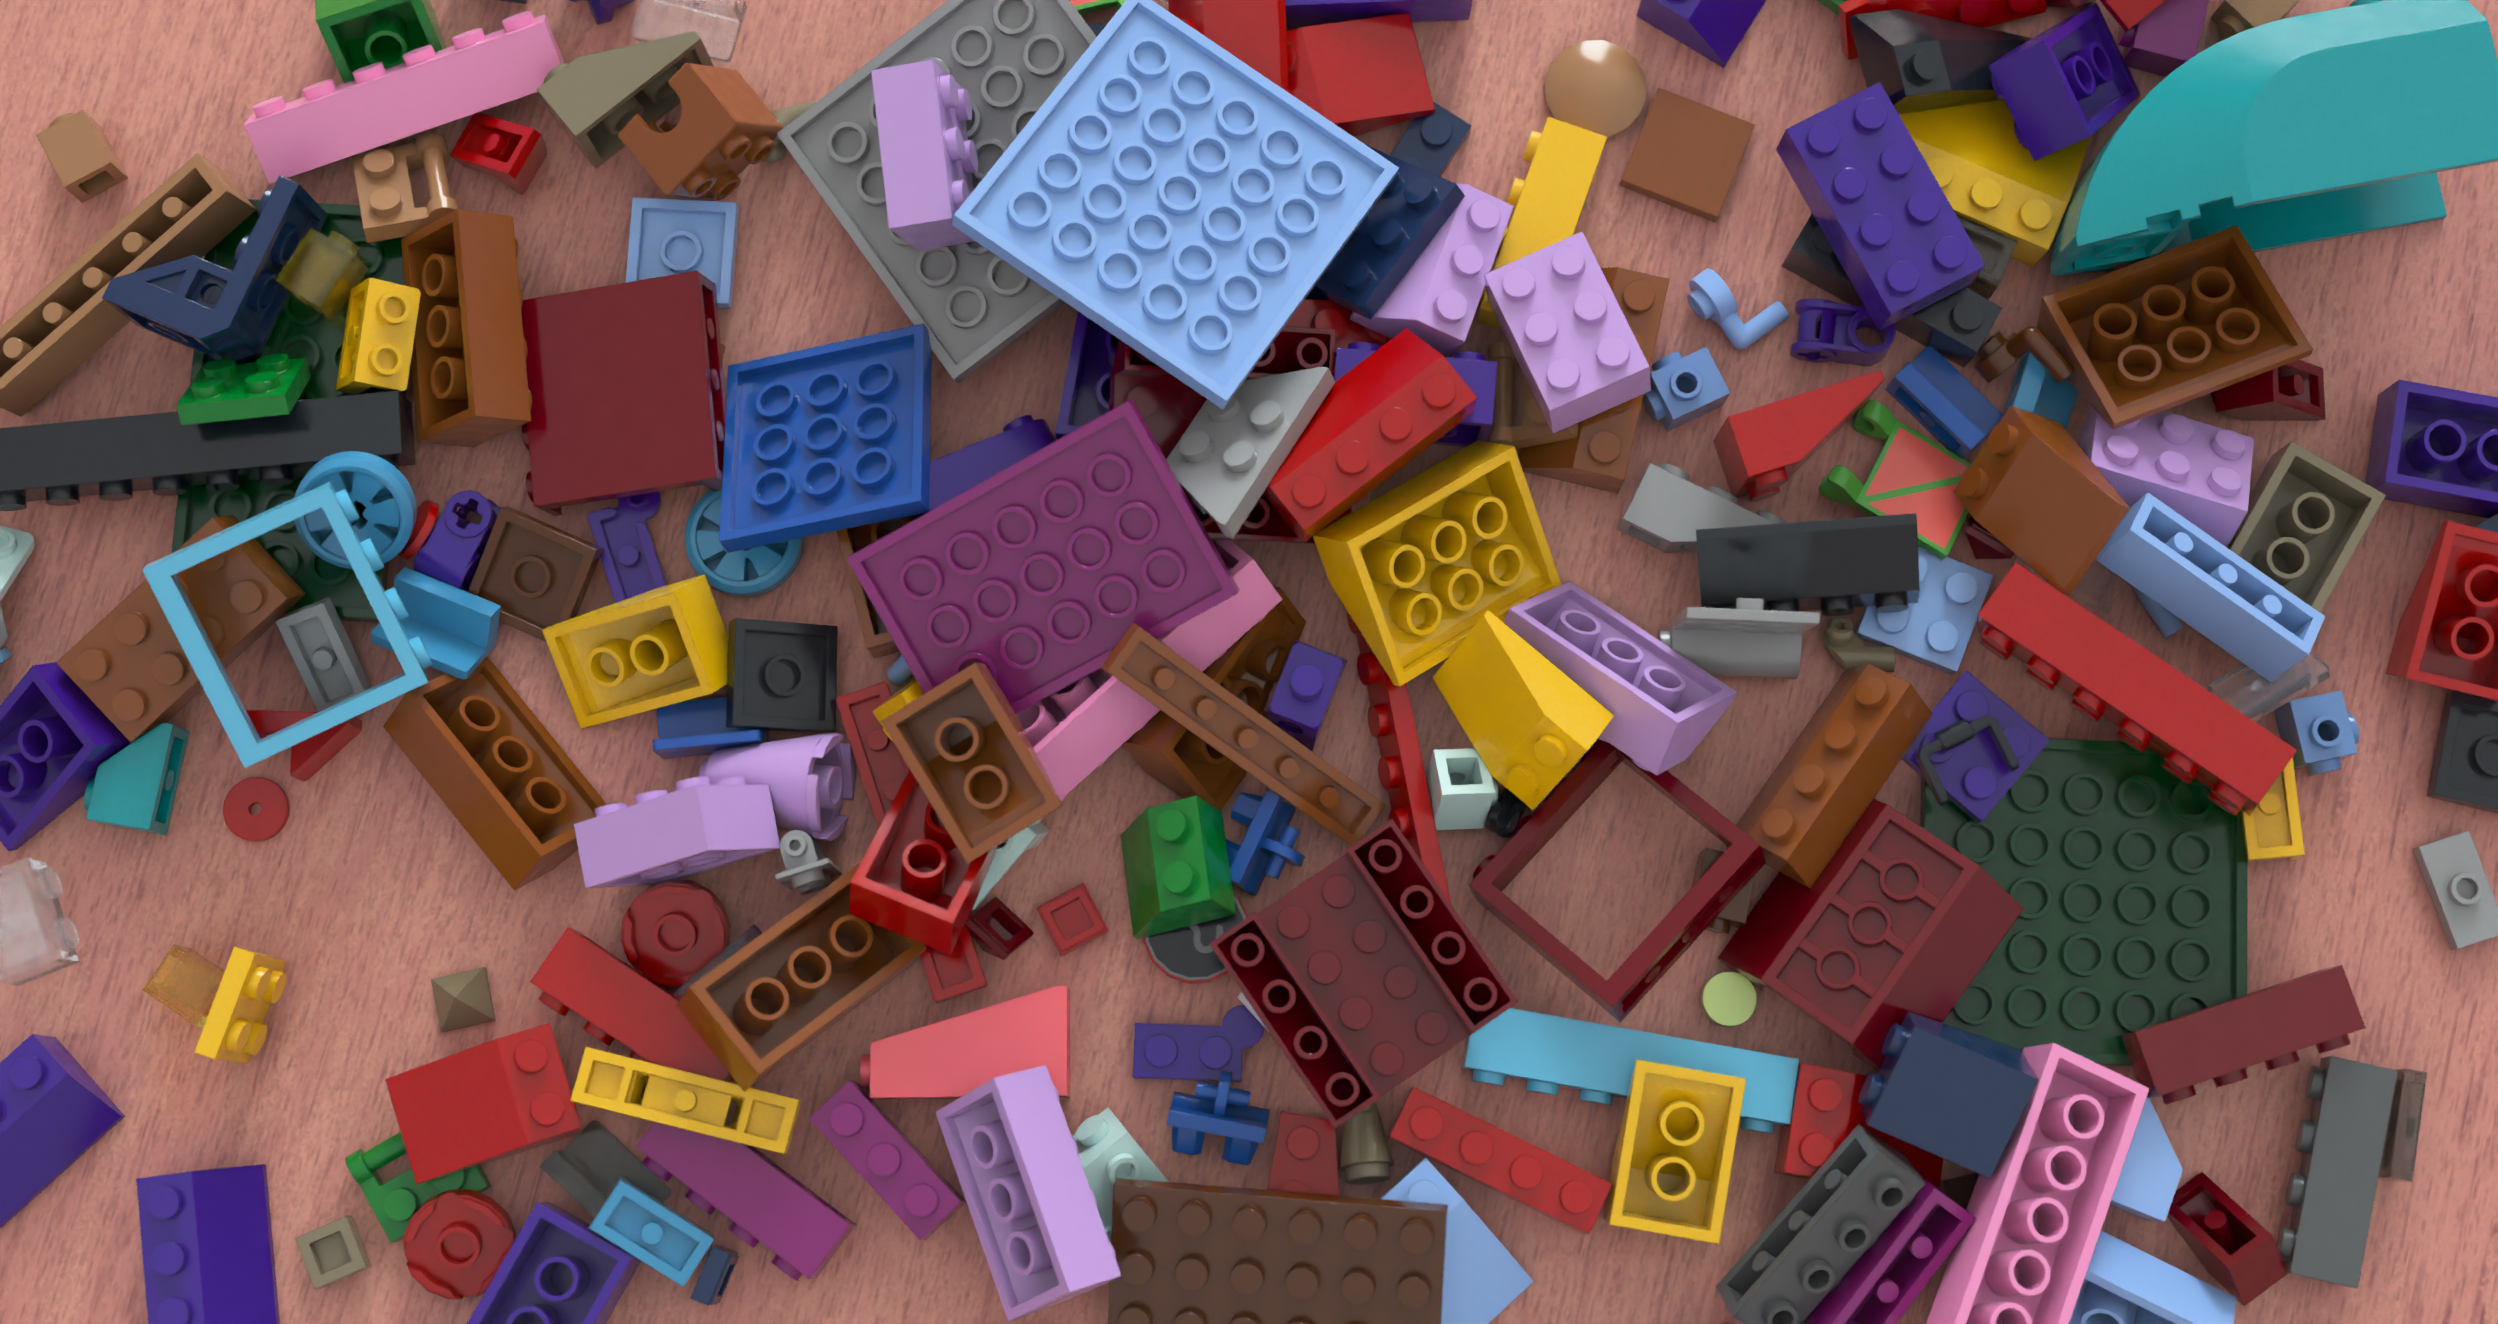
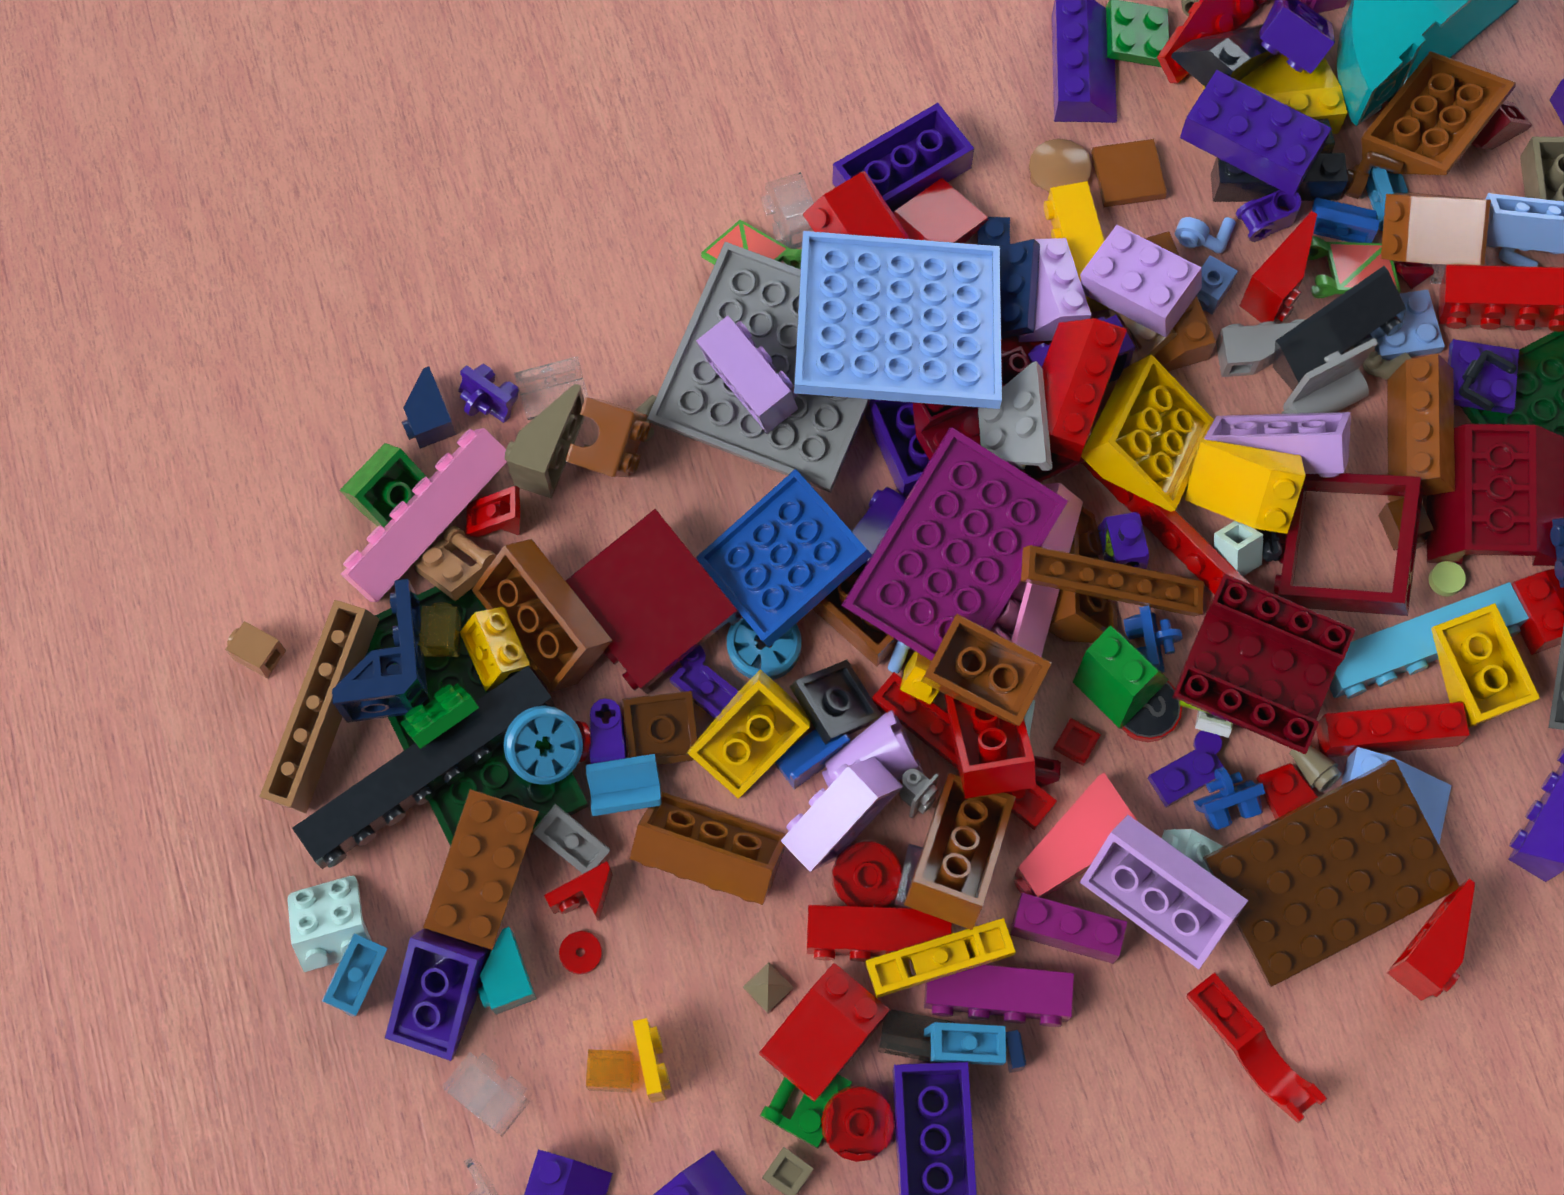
camera: 30 degrees left, 10 degrees down
(206, 663) = (517, 868): medium azure window -> none
(684, 238) = (626, 503): light blue plate -> none
(2179, 461) = (1477, 175): lavender brick -> none

